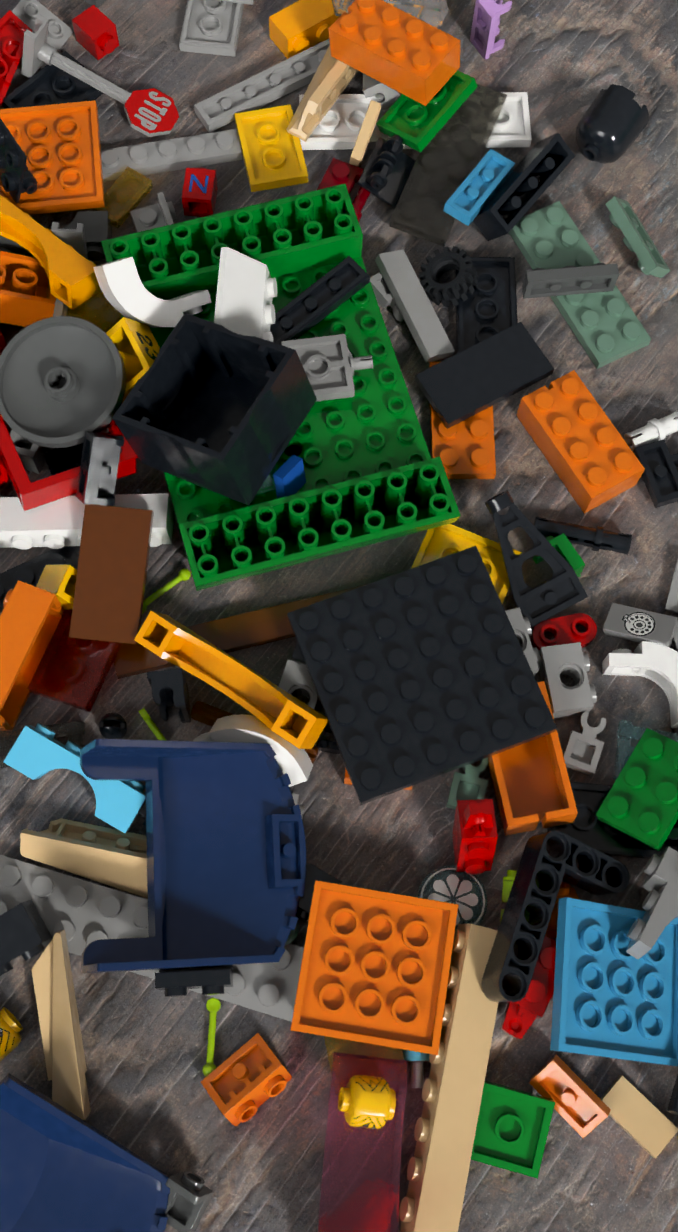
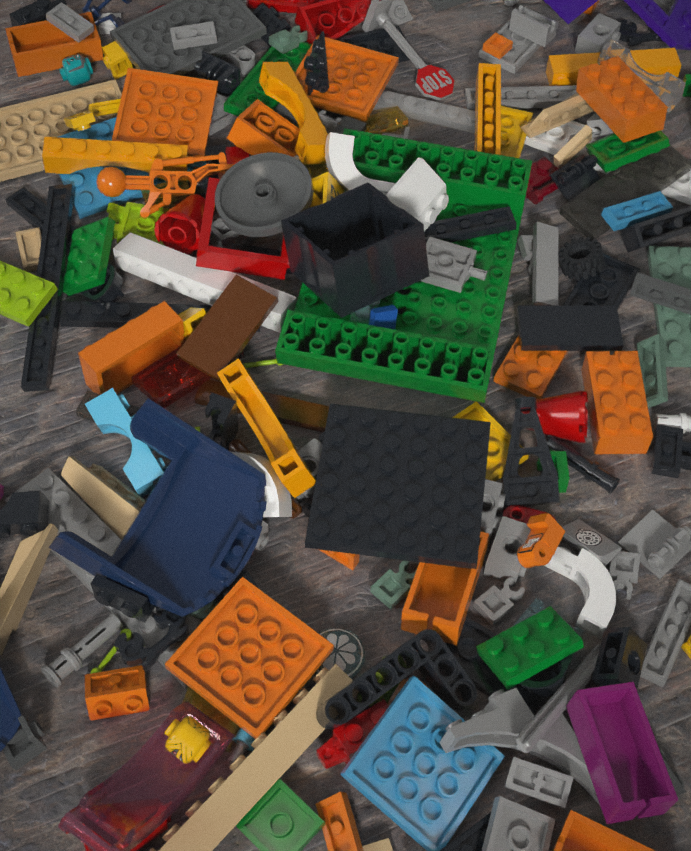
camera: 30 degrees right, 15 degrees down
(95, 32) = (426, 23): red brick -> none
(99, 468) = (259, 256): hinge -> none
(192, 1007) = (72, 658): none -> light grey pin
(199, 192) = (438, 134): red brick -> none
(200, 28) = (497, 45): none -> orange plate
(242, 1028) = (133, 651): none -> black helmet
(247, 133) = (488, 109): none -> light orange brick
(474, 835) = (375, 609): red hinge -> none
(536, 488) = (564, 416): none -> red cone
(589, 367) = (653, 369): none -> sand green plate
(599, 659) = (541, 541): none -> orange leg

